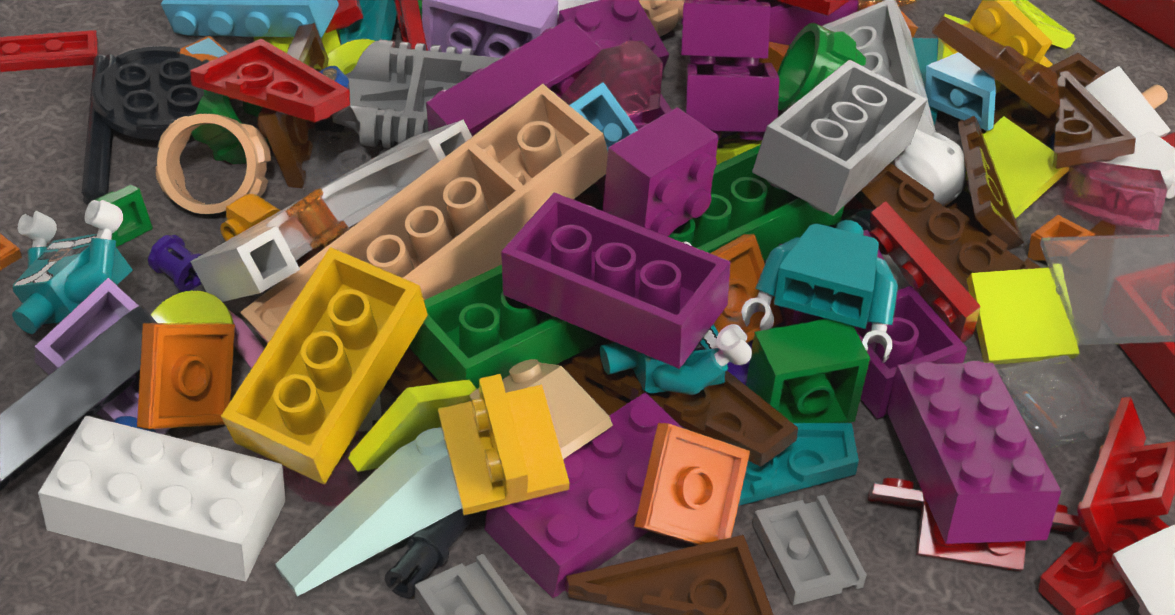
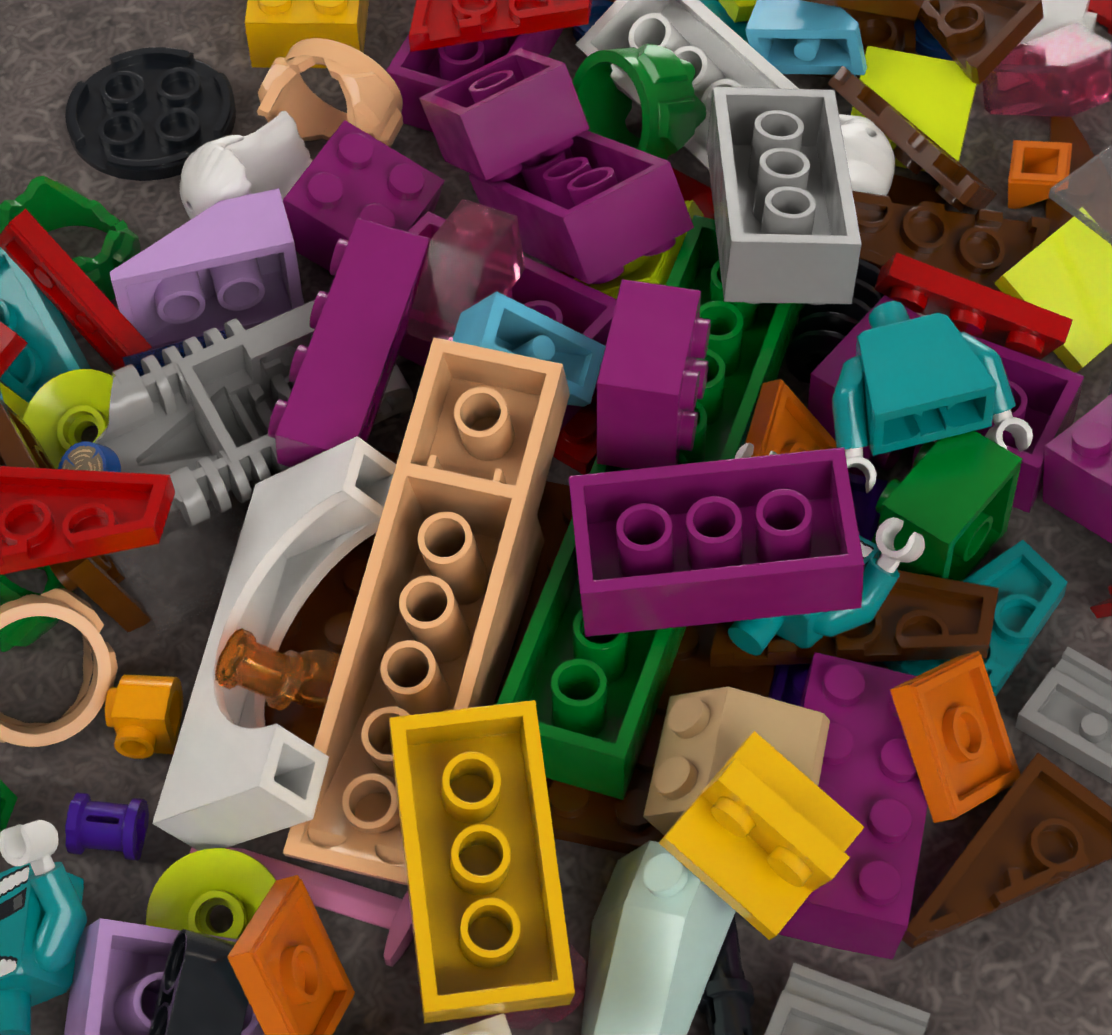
camera: 30 degrees left, 10 degrees up
(406, 419) = (608, 863): neon yellow tile -> none

